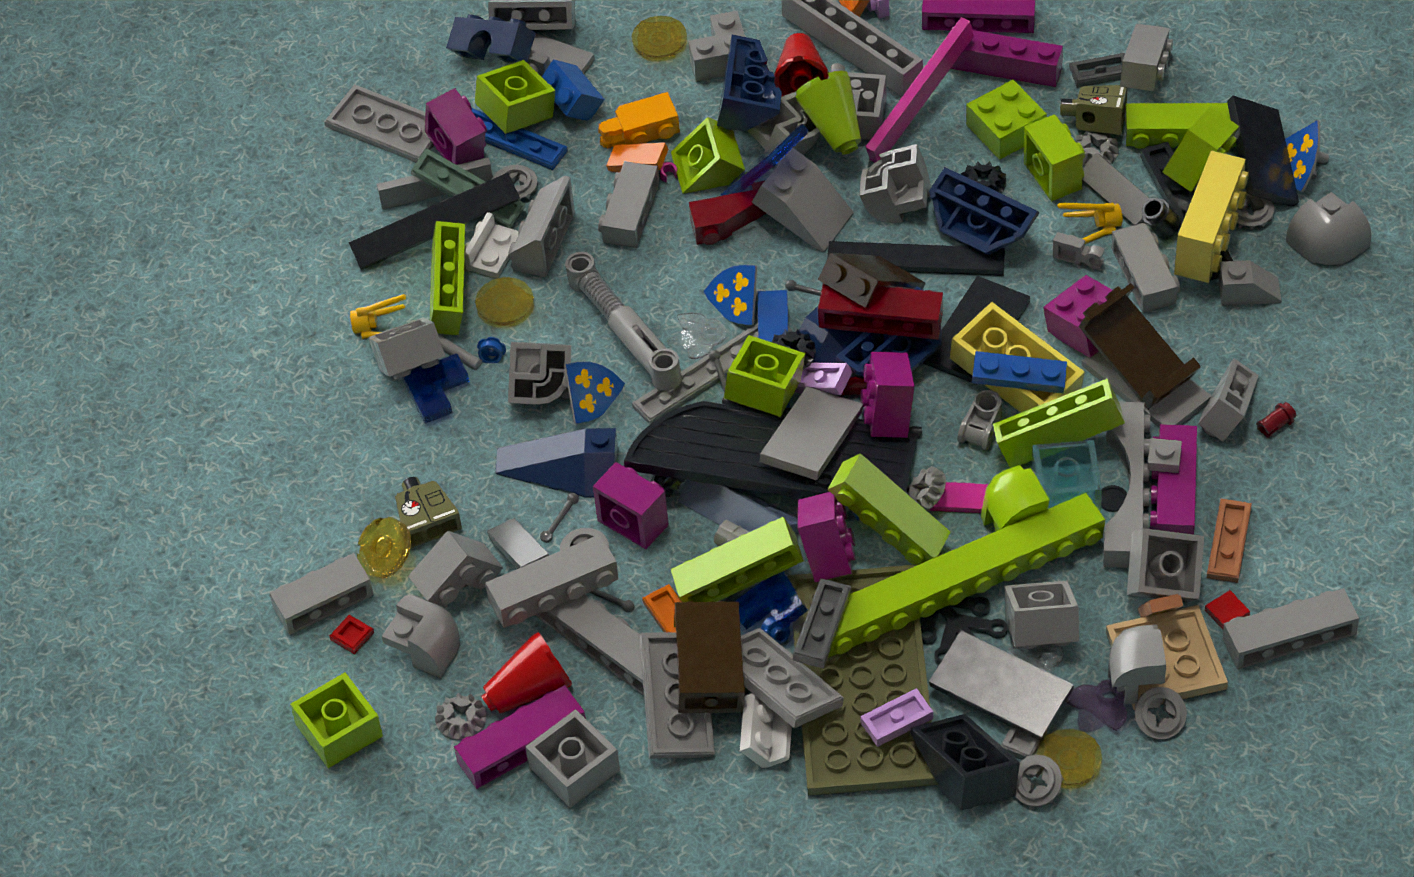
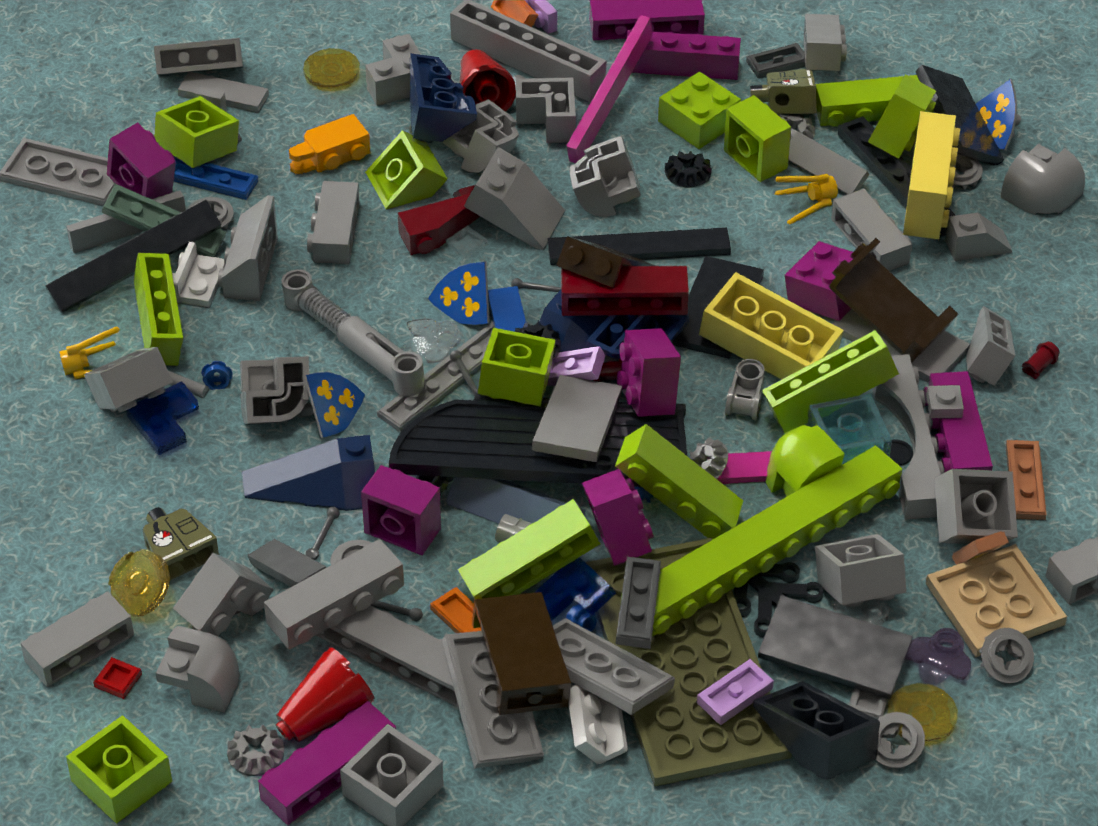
camera: 15 degrees left, 5 degrees down
(474, 35) = (142, 79): dark blue arch -> none
(504, 302) = (221, 328): clear yellow tile -> none
(573, 91) = (255, 122): blue brick -> none
(645, 153) = (342, 172): tile -> none
(668, 167) = (363, 186): dark pink hand -> none
(766, 161) = (475, 162): clear blue tile -> none
(832, 110) = (529, 111): lime cone -> none
(978, 214) = (696, 196): dark blue wedge -> none
(1019, 372) = (780, 336): blue plate -> none
(1074, 250) = (797, 223): light grey plate -> none
(1137, 660) = (977, 600): light grey brick -> none
(1160, 217) = (877, 182): black brick -> none
(1226, 608) = (1042, 546): red tile -> none

